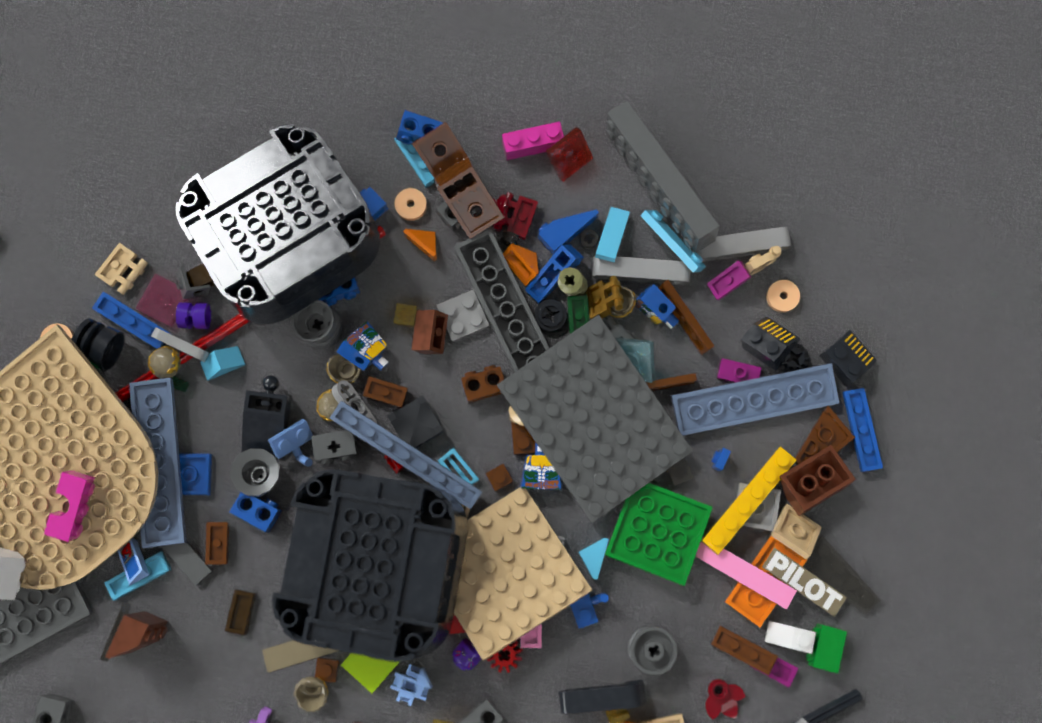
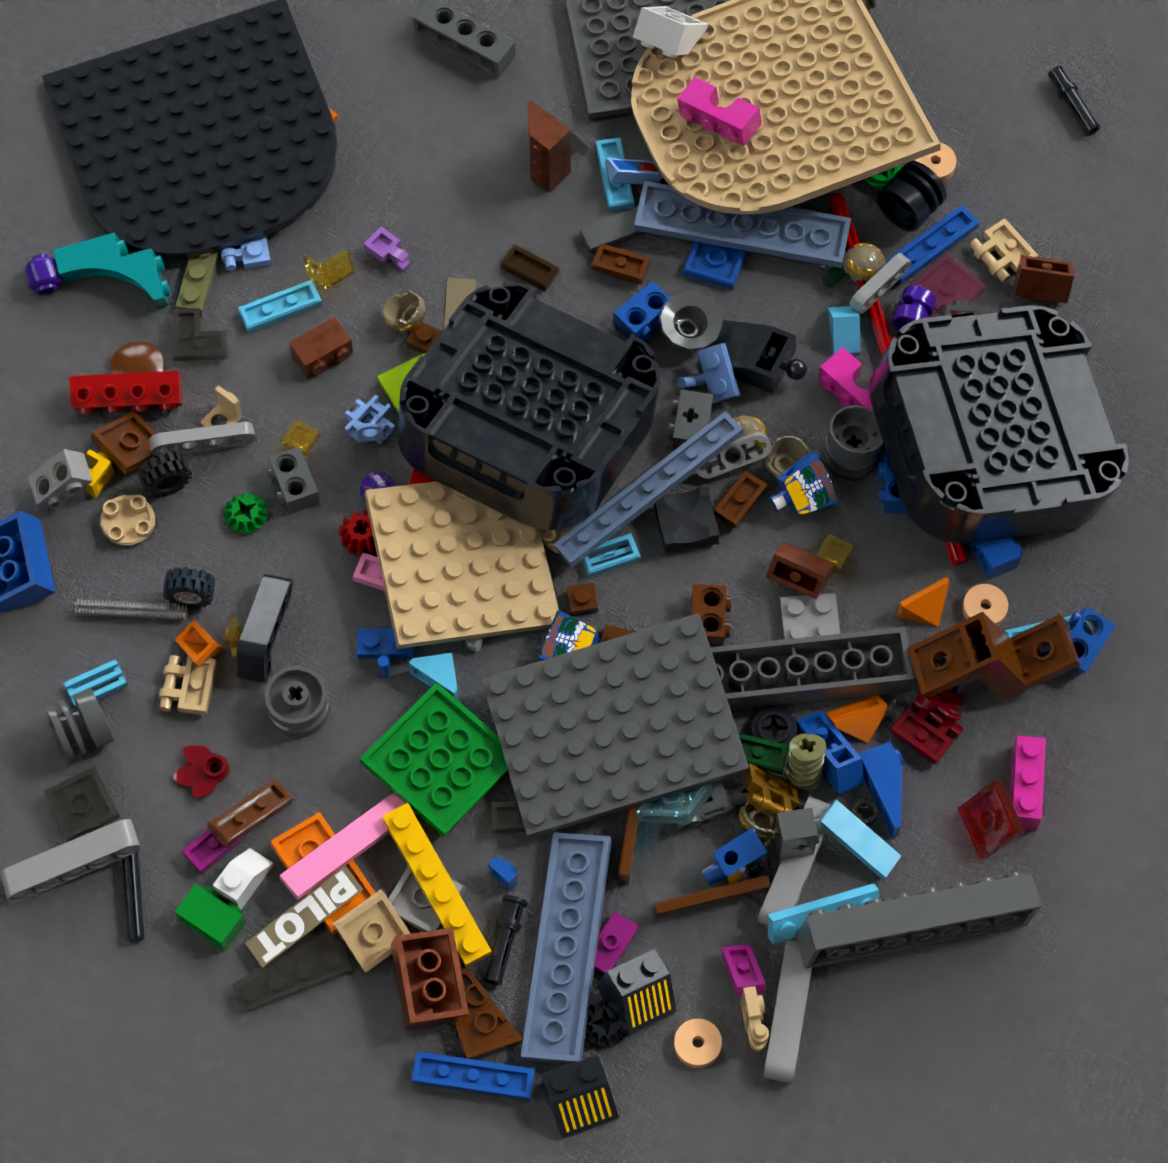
camera: 110 degrees right, 15 degrees down
(139, 231) = (1044, 279): none -> copper brick
(266, 352) = (839, 377): none -> dark pink arch
(634, 268) = (796, 833): none -> dark grey brick
(757, 443) = (507, 927): none -> black pin

